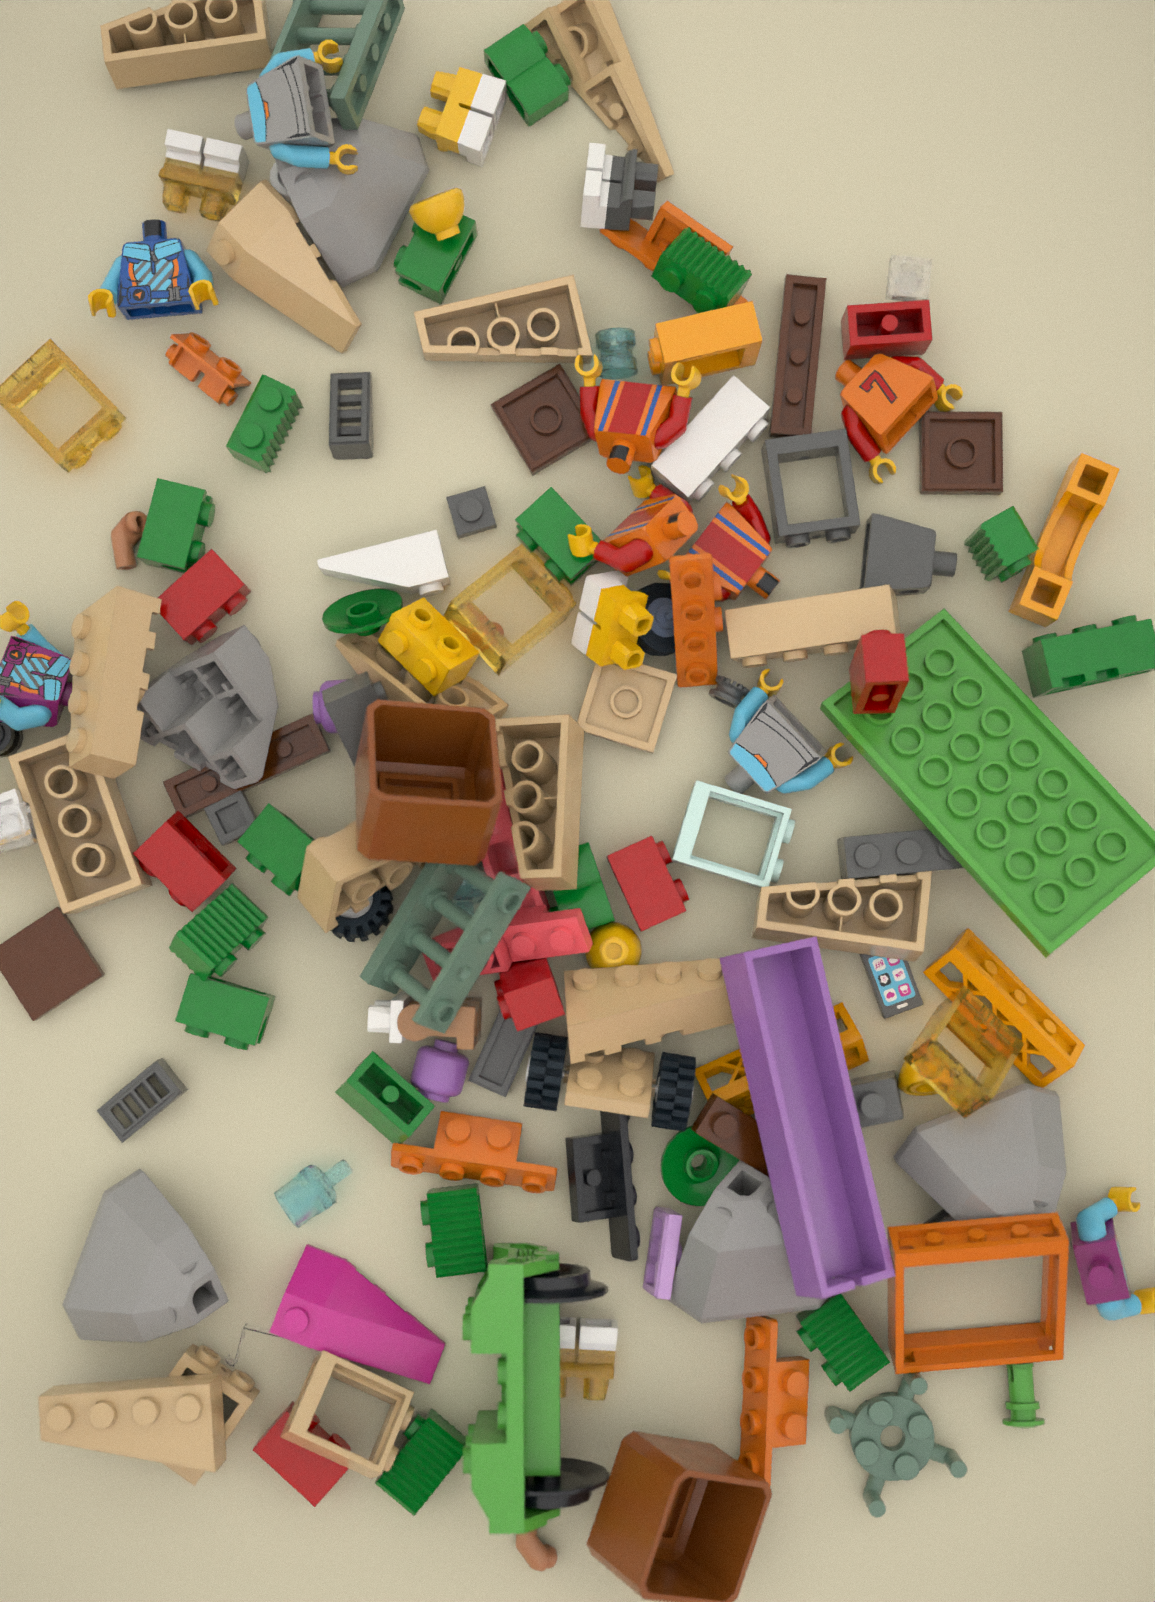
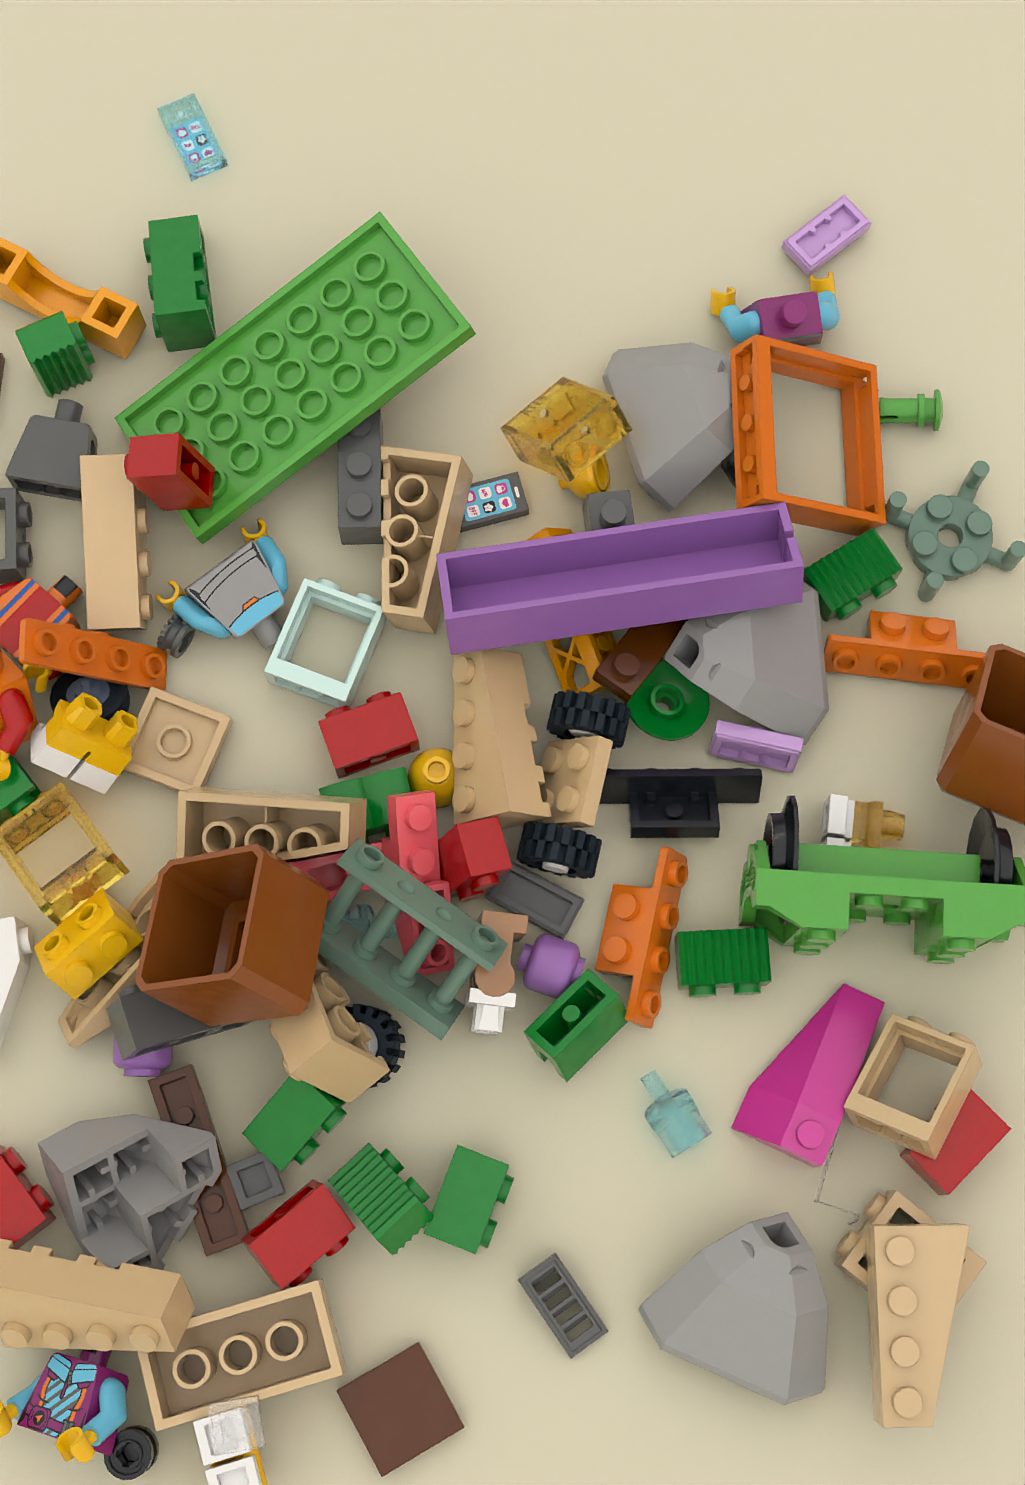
camera: 90 degrees left, 10 degrees down
(362, 612) = (41, 1015): green dish -> none
(422, 1460) = (963, 1006): green brick -> none
(1016, 1003) = (520, 383): light orange fence -> none

